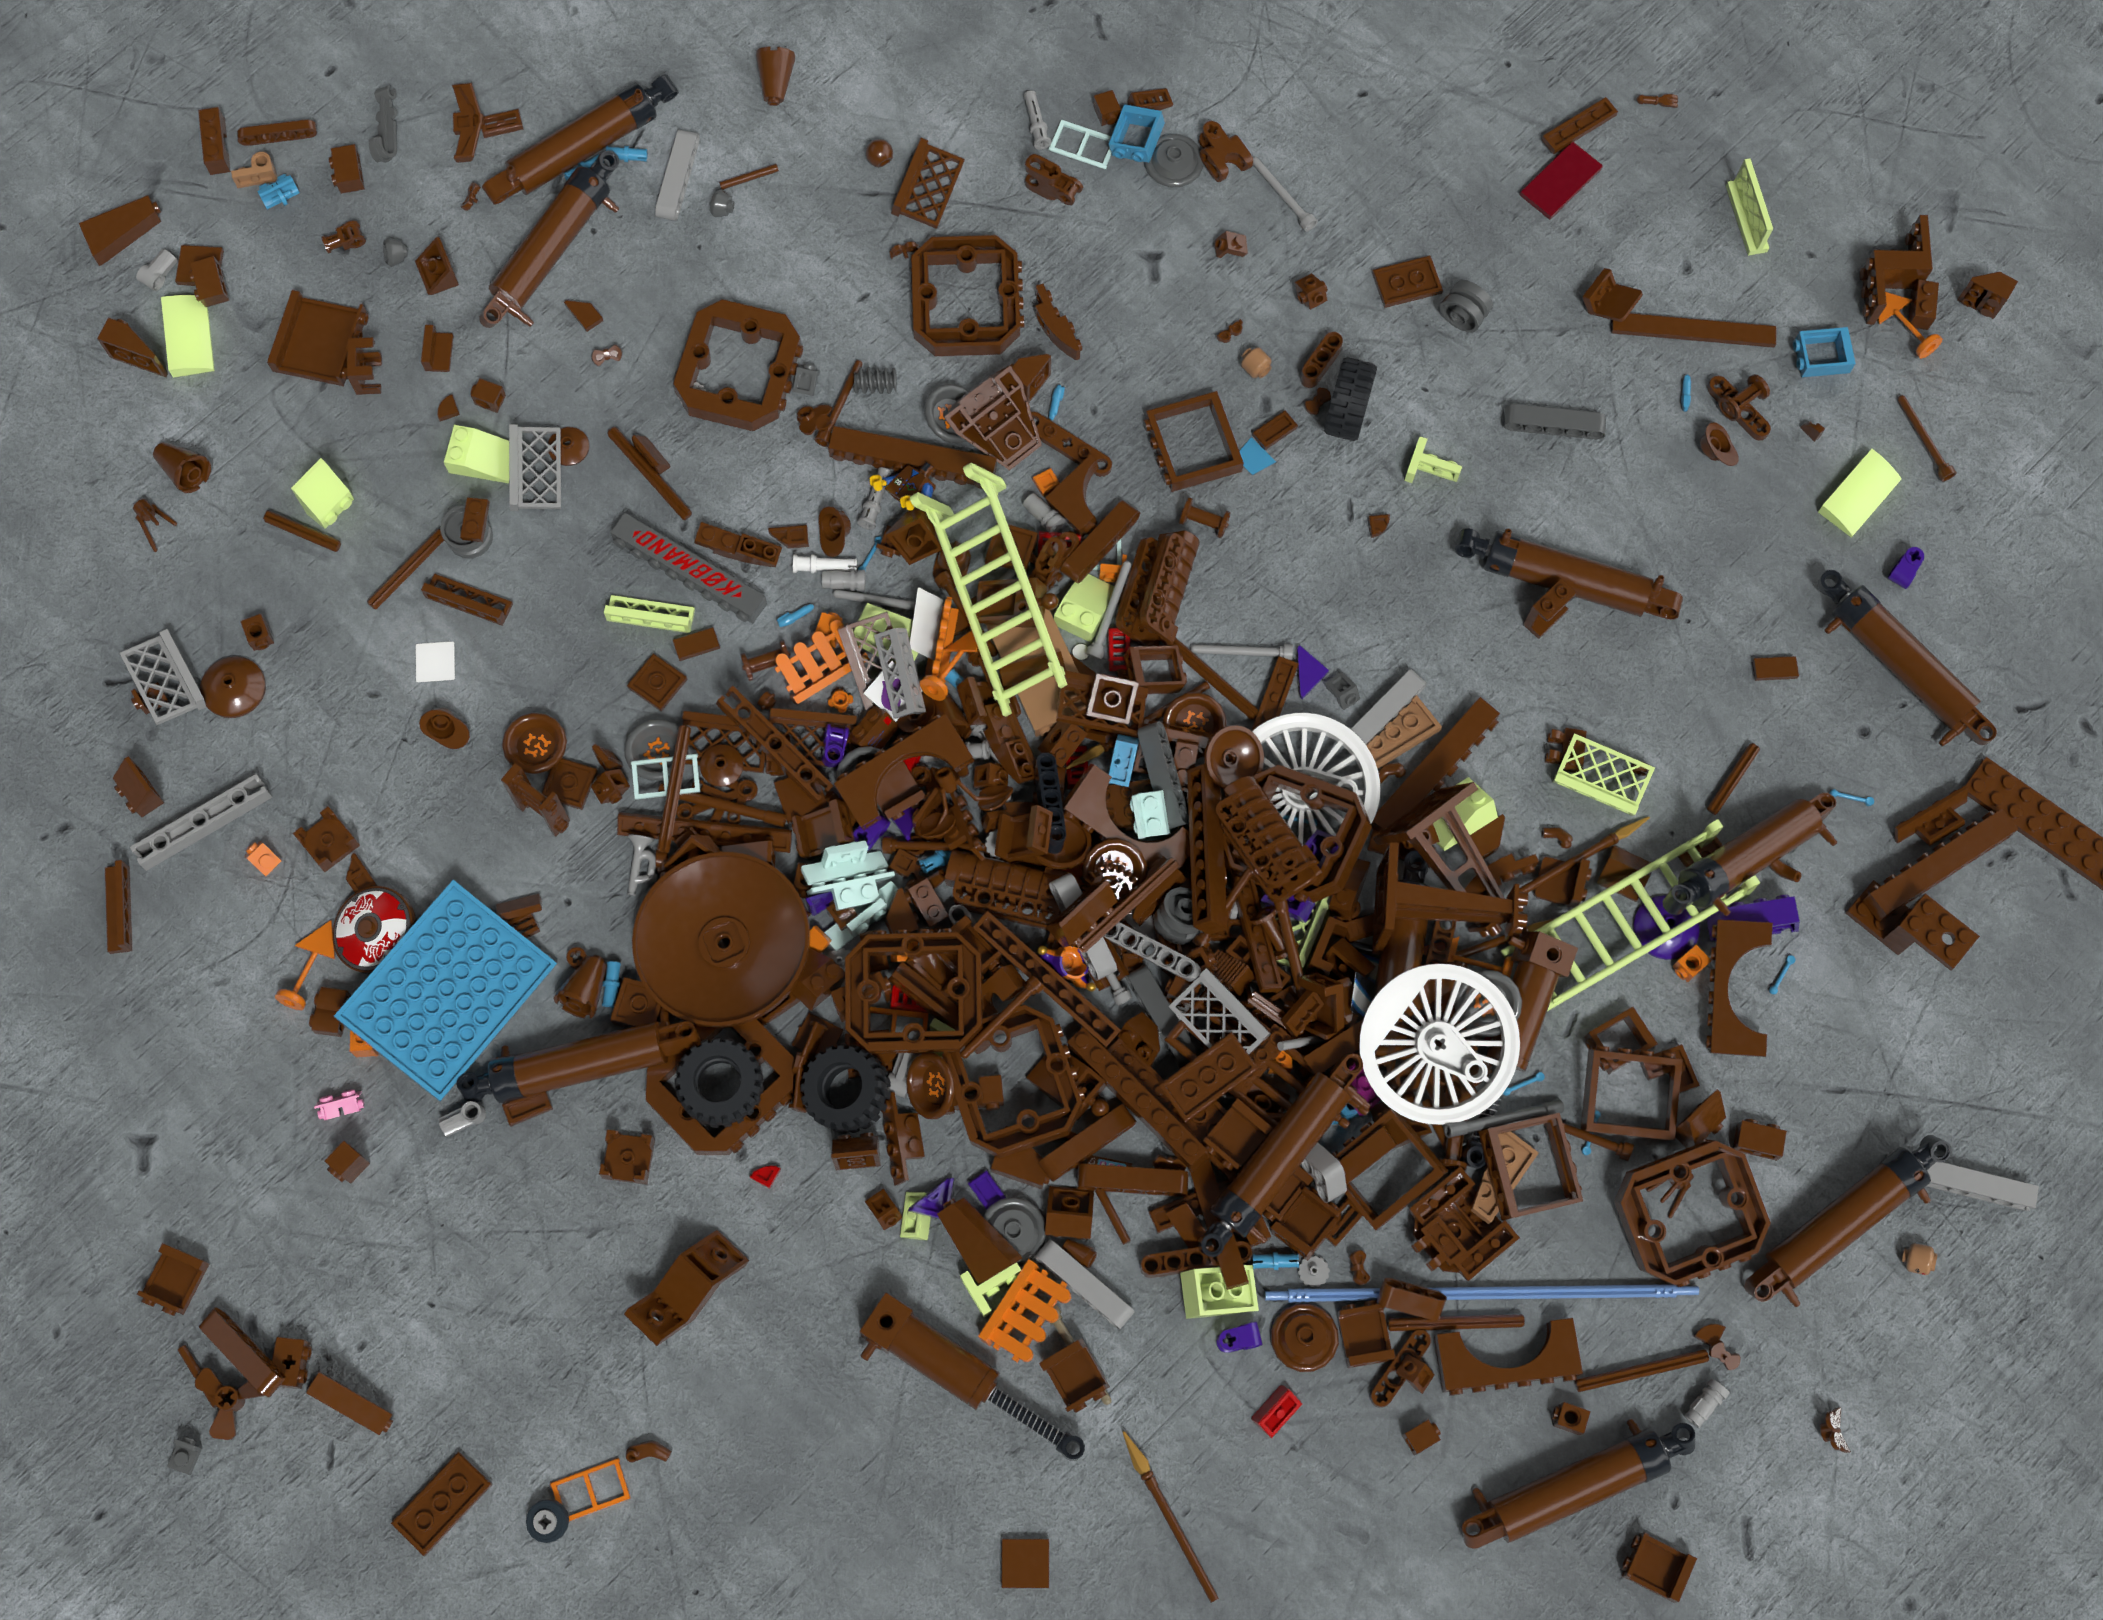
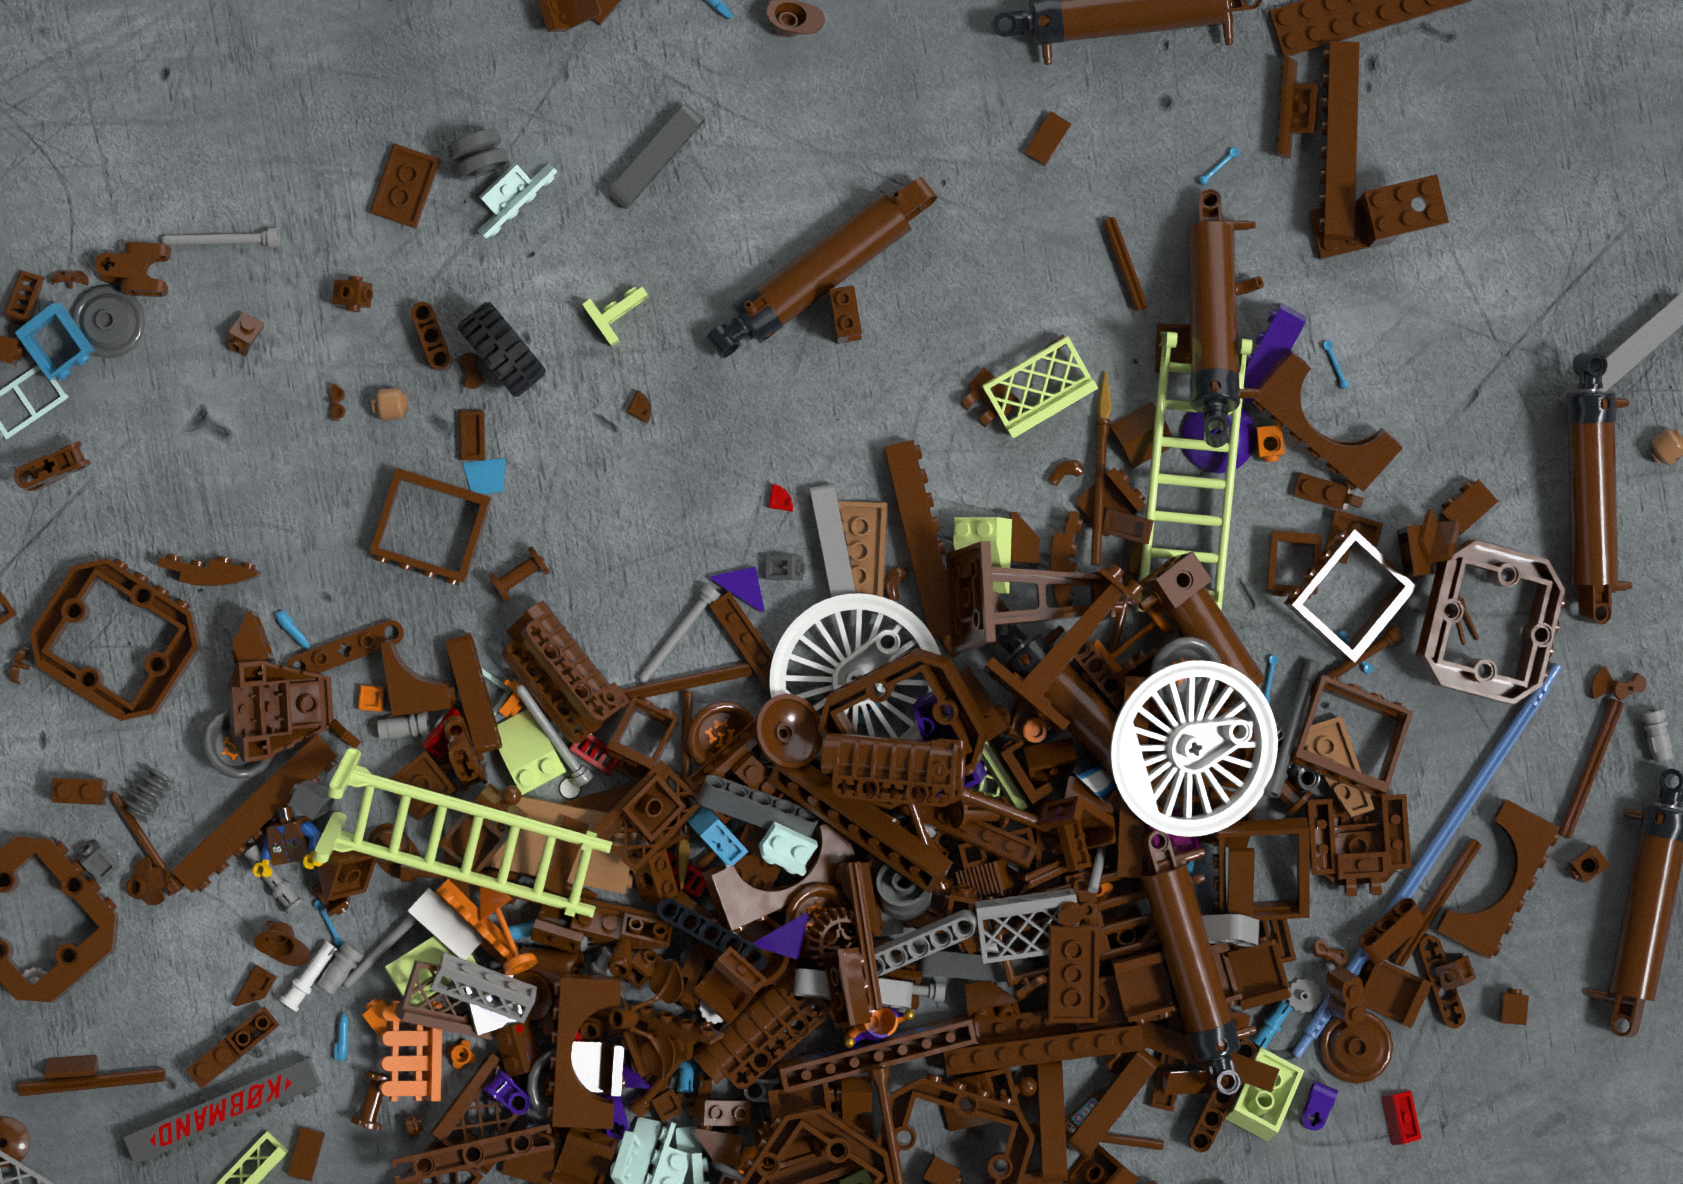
camera: 55 degrees left, 15 degrees up
(846, 337) = (79, 791): none -> reddish brown brick
(950, 483) = (311, 799): none -> dark grey slope
(987, 753) = (621, 959): none -> reddish brown cone
(1009, 480) = (345, 734): none -> reddish brown tile
(1086, 852) = (786, 939): none -> dark purple tile
(1169, 1052) = (1030, 986): none -> reddish brown piece
(1185, 119) = (75, 276): none -> reddish brown piece
(1251, 1038) = (1069, 913): none -> reddish brown tile
(1340, 1295) = (1345, 996): none -> reddish brown brick
(1360, 937) = (1034, 730): none -> orange tile
(1387, 657) = (780, 499): none -> red tile
(1455, 344) = (510, 193): none -> light aqua bracket
(1556, 900) = (1127, 526): none -> reddish brown tile
(1687, 1030) = (1325, 492): none -> reddish brown hinge
(1720, 1125) = (1438, 539): none -> reddish brown panel

